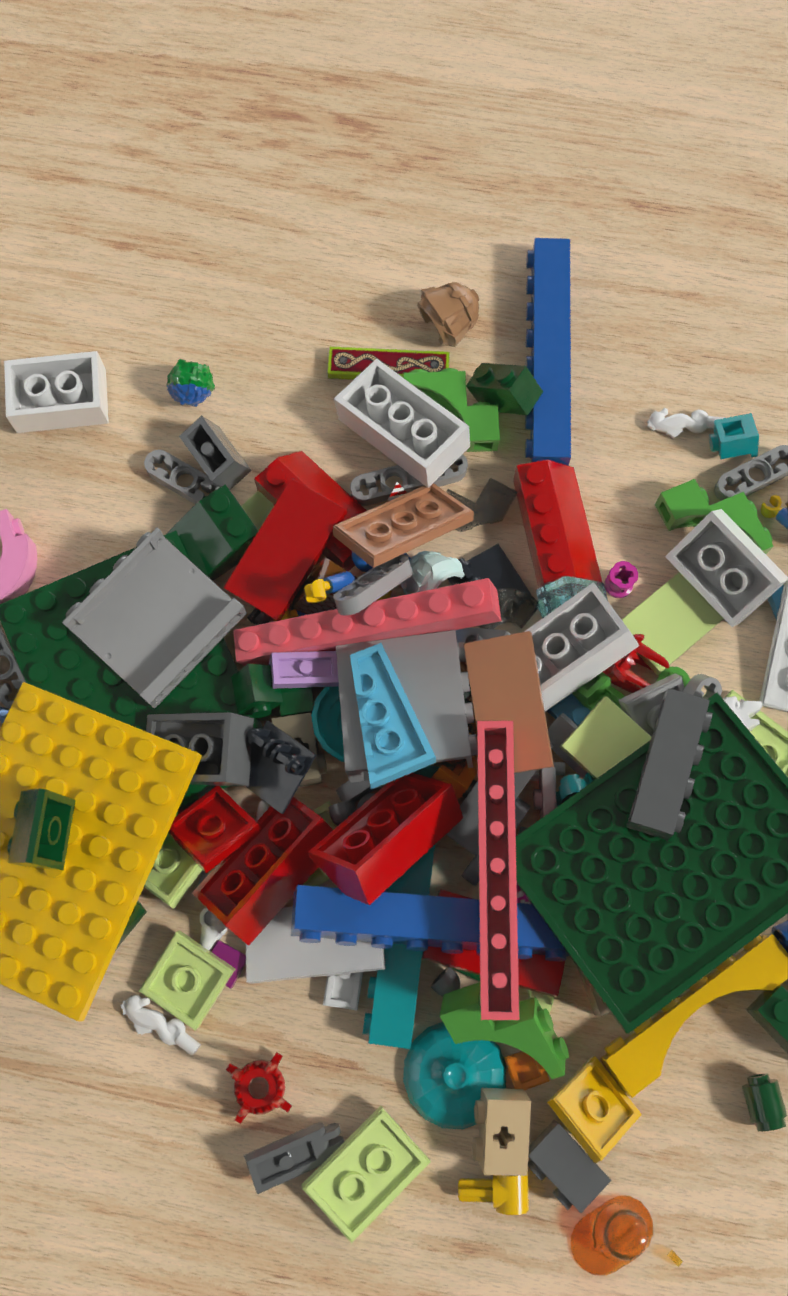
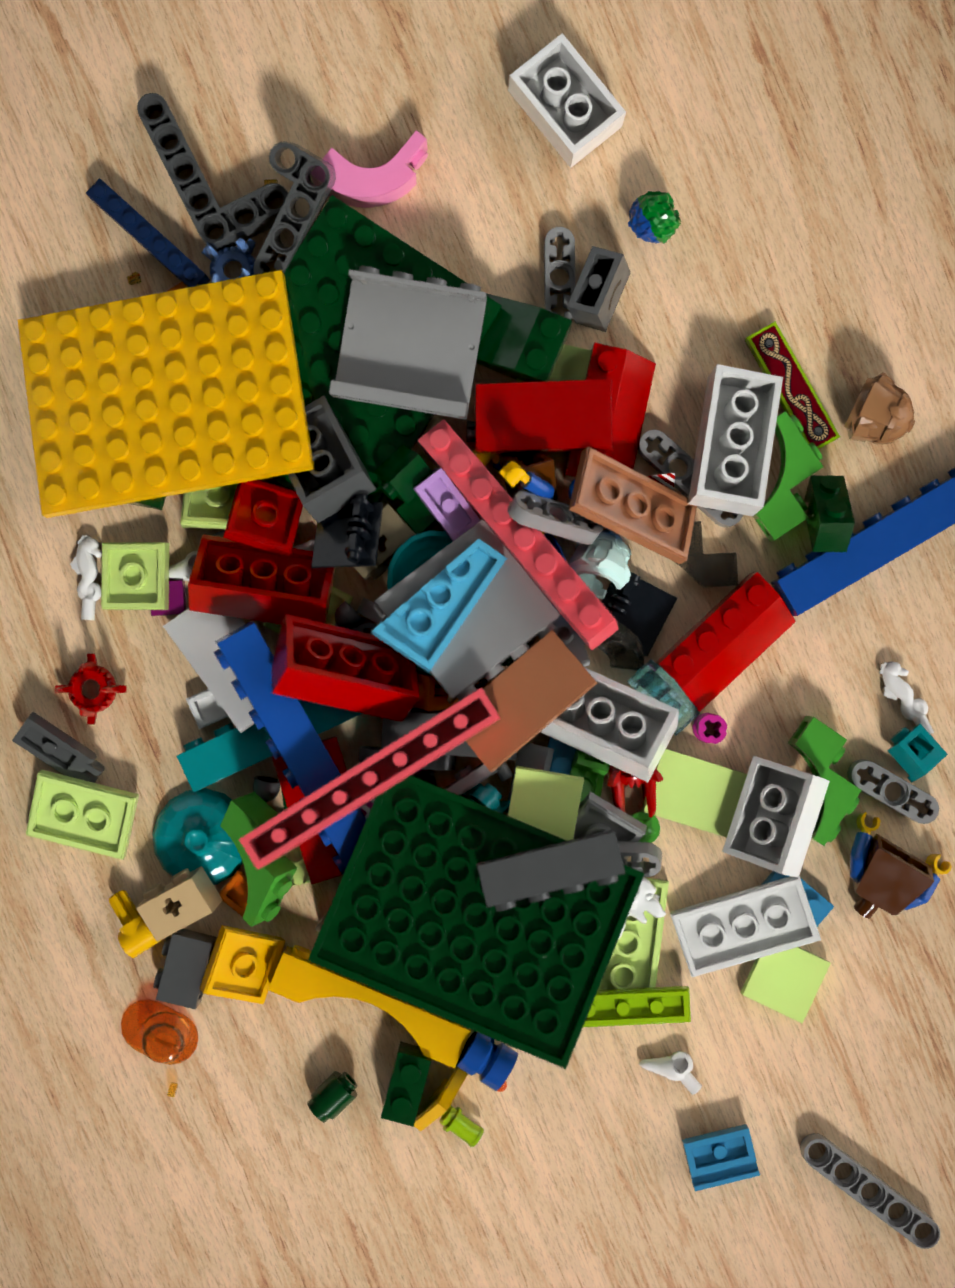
camera: 60 degrees right, 15 degrees up
(41, 829) = (163, 380): dark green slope -> none

